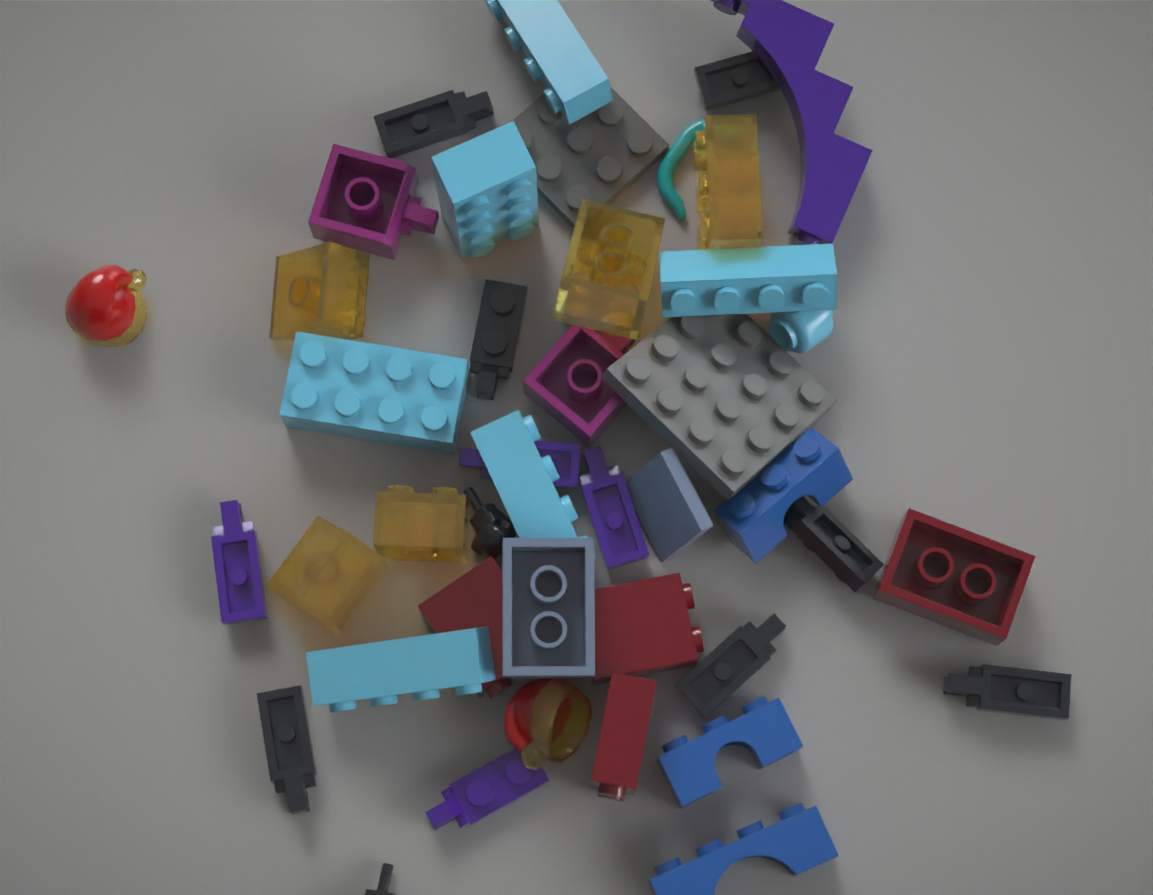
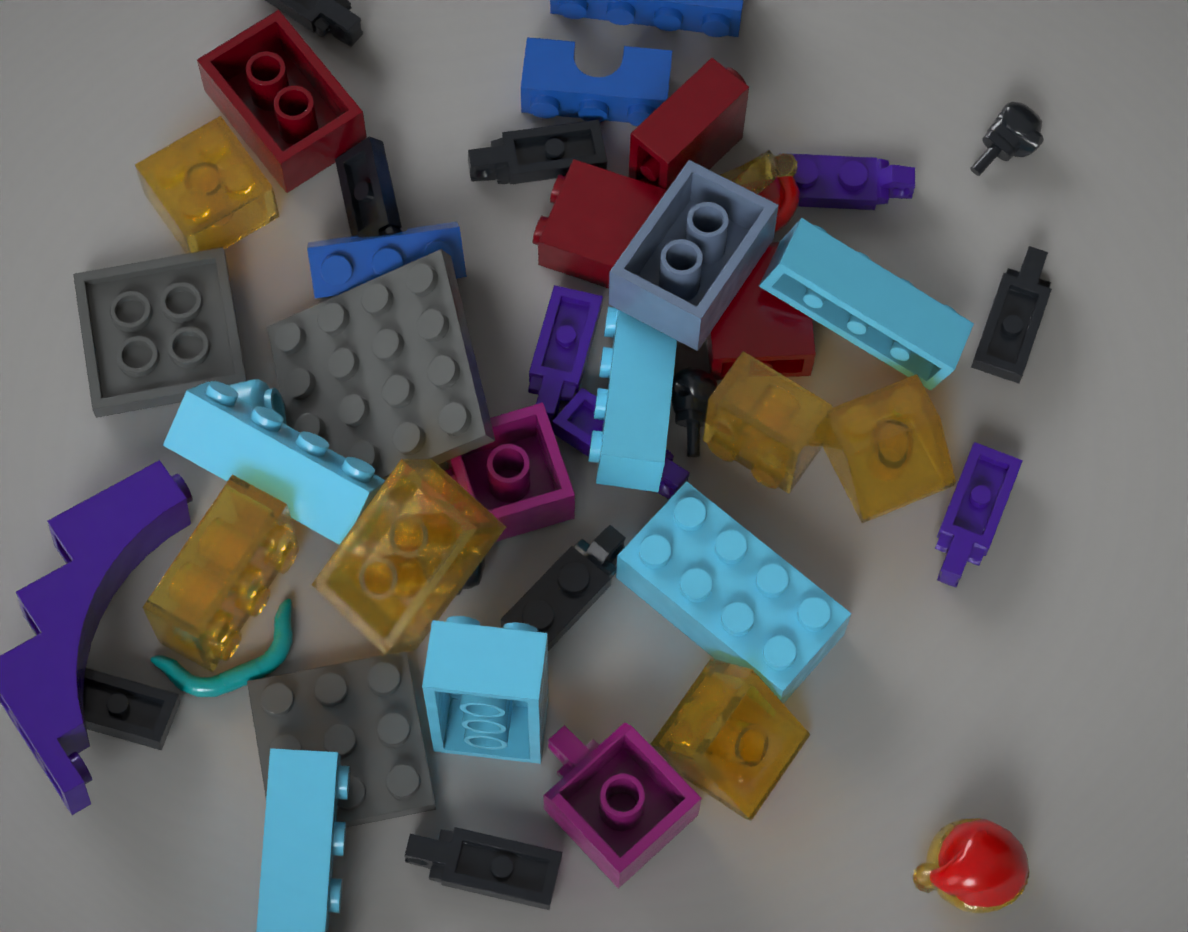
camera: 150 degrees left, 10 degrees down
(668, 505) = (506, 306): sand blue tile -> none
(909, 349) = (158, 330): none -> dark grey plate
(956, 473) = (207, 188): none -> clear yellow brick

